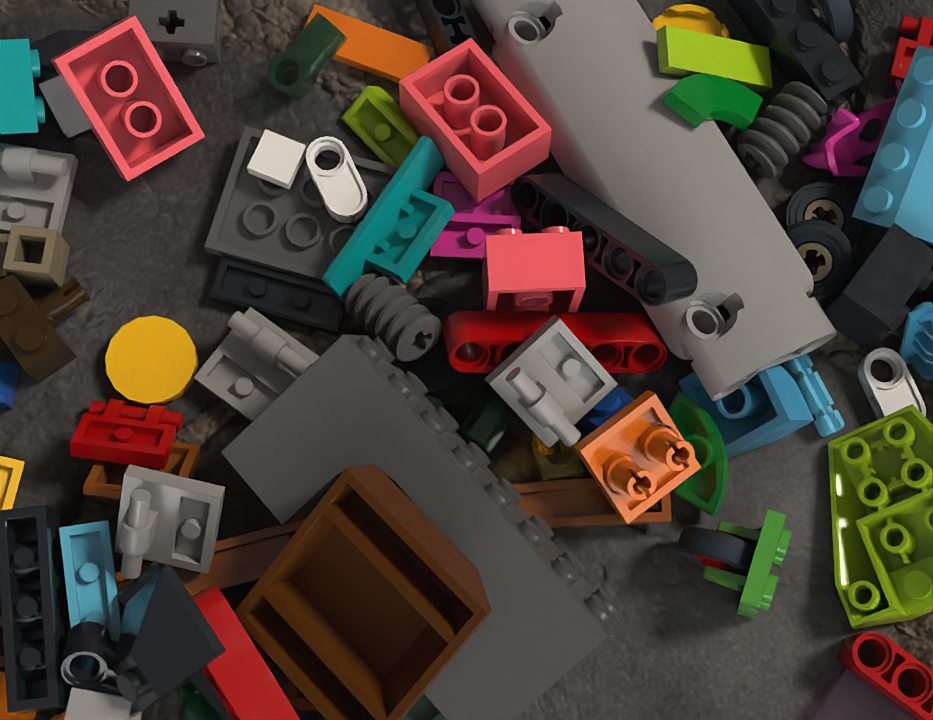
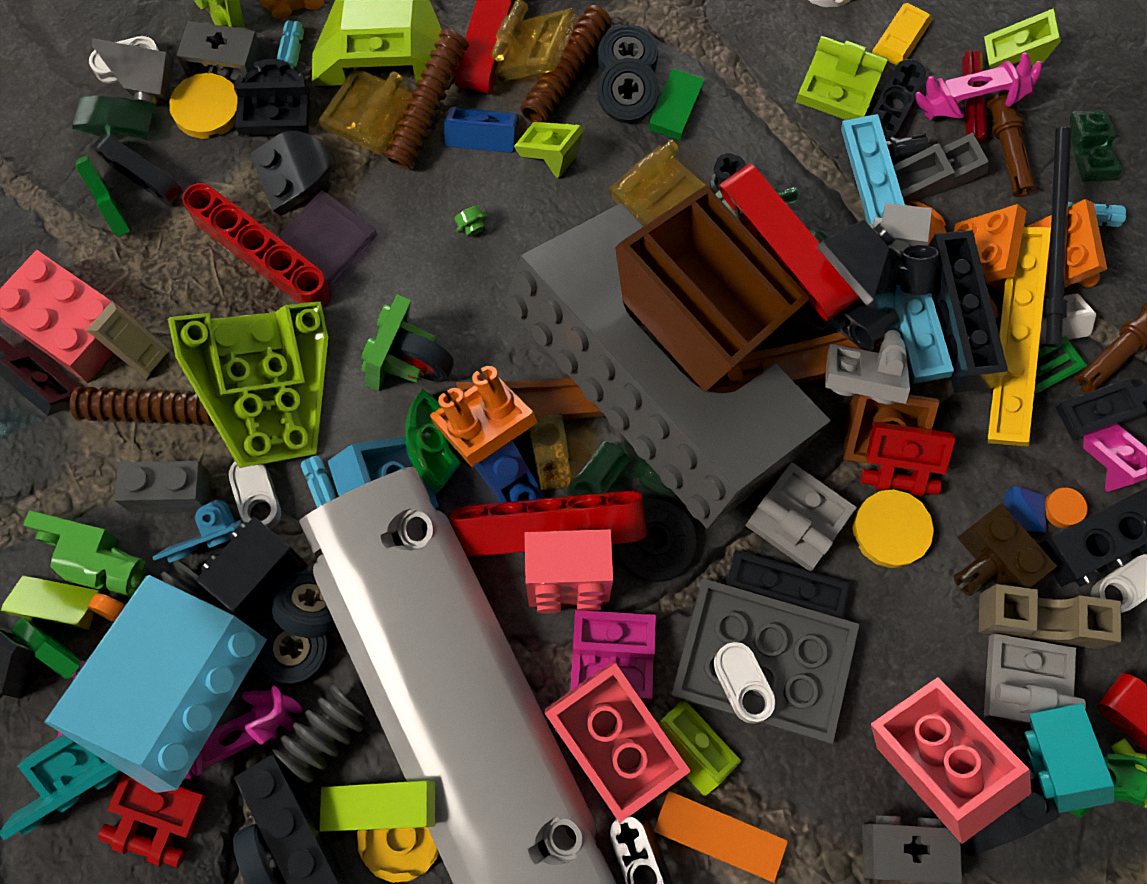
camera: 175 degrees left, 5 degrees down
(277, 159) = (800, 704): white tile -> none
(310, 53) = (779, 815): clear green piece -> none
(393, 315) = (691, 542): dark grey piece -> none
(398, 225) = (685, 630): teal bracket -> none
(552, 382) = (553, 473): light grey plate -> none
(609, 239) = (501, 610): black beam -> none
(713, 98) = (384, 757): green tile -> none

